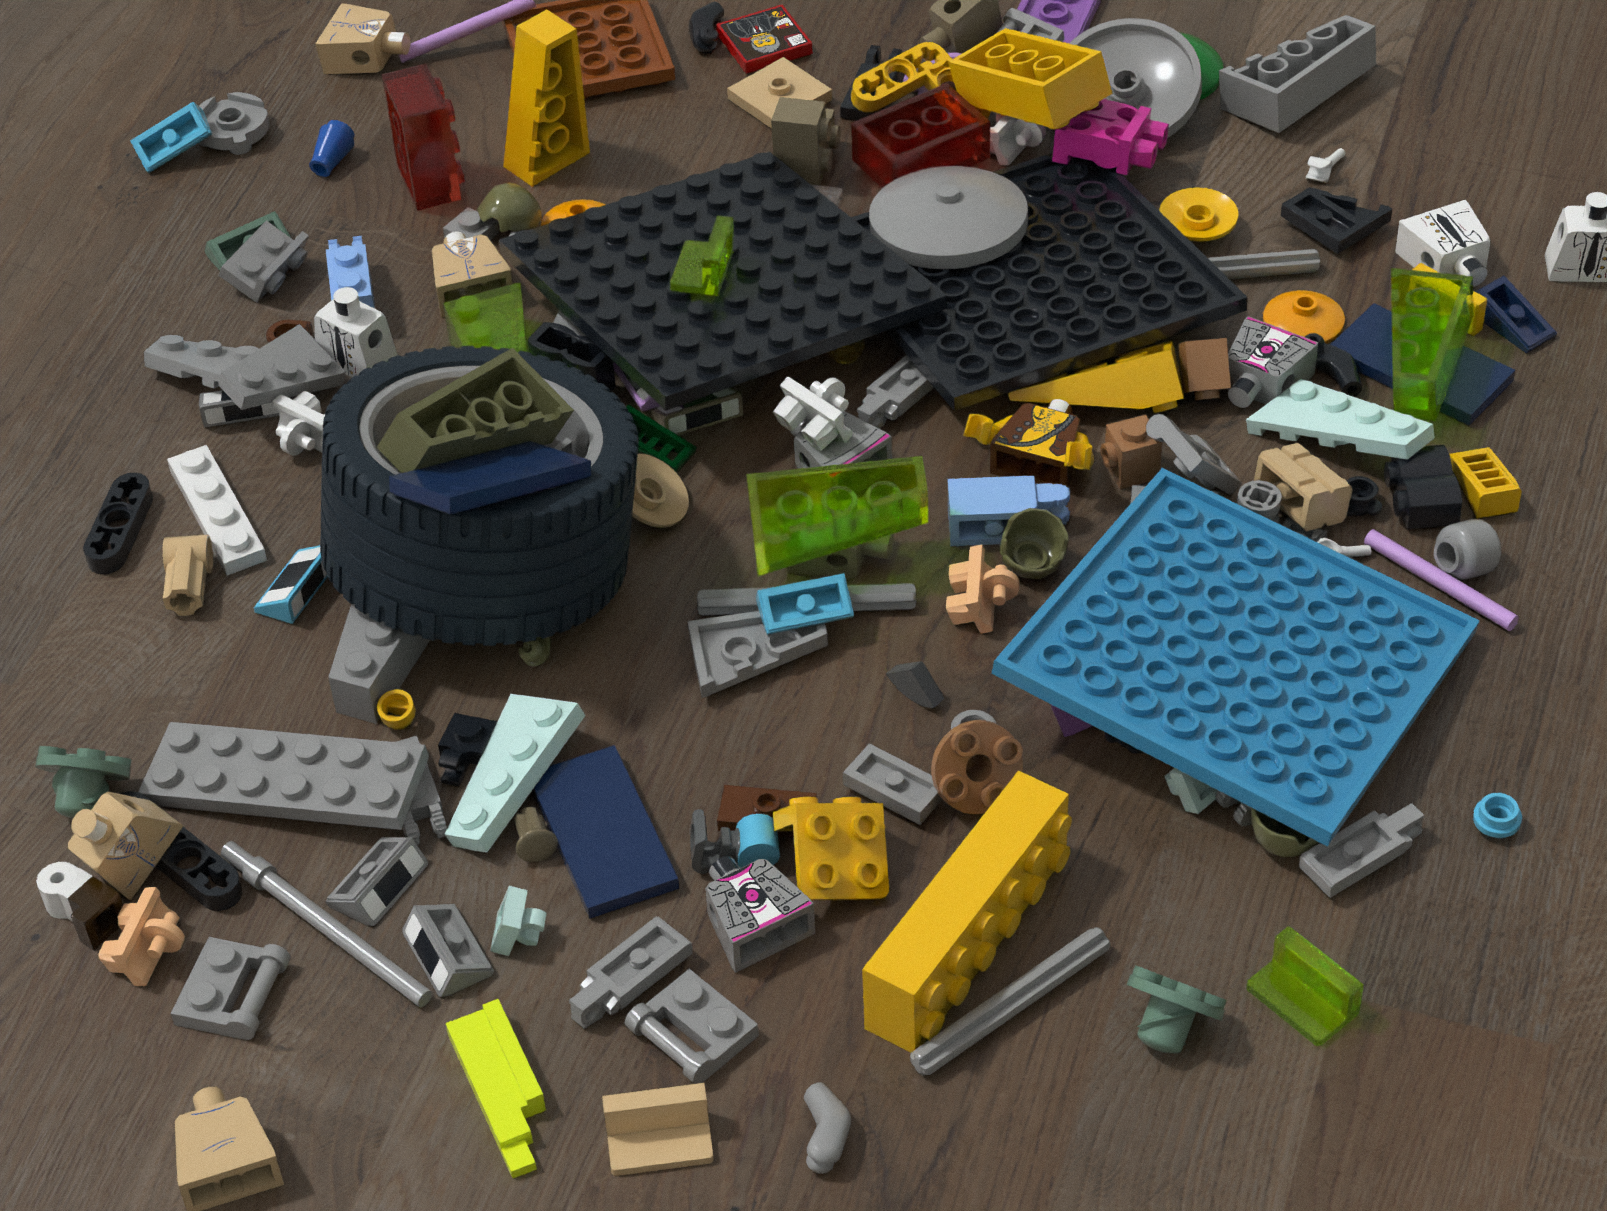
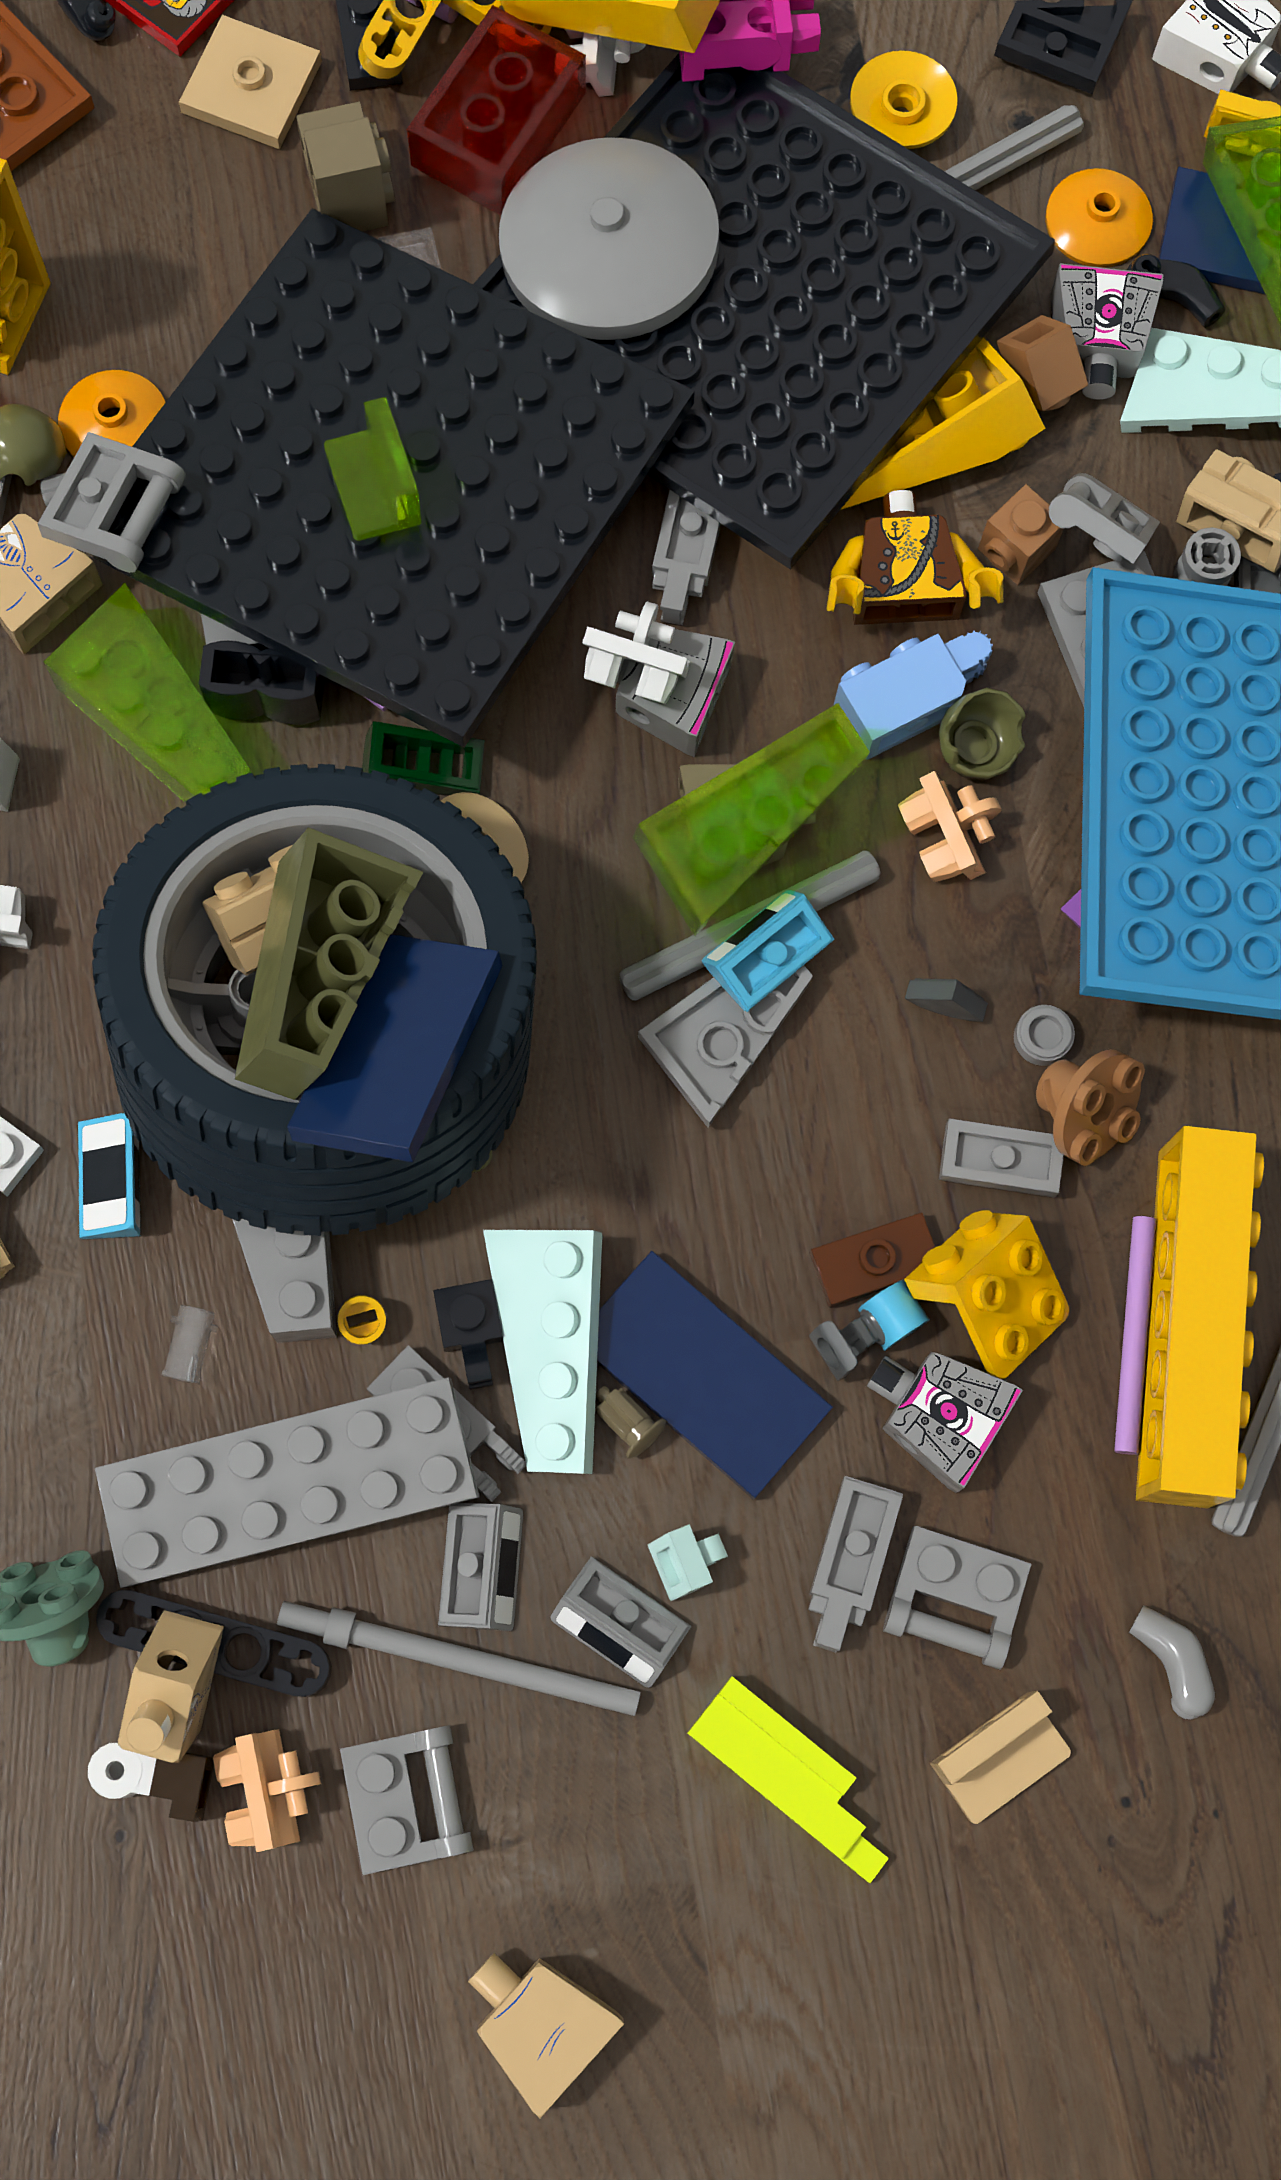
camera: 35 degrees left, 30 degrees up
(278, 683) = (189, 1343): none -> clear pin
(529, 214) = (96, 490): none -> light grey plate

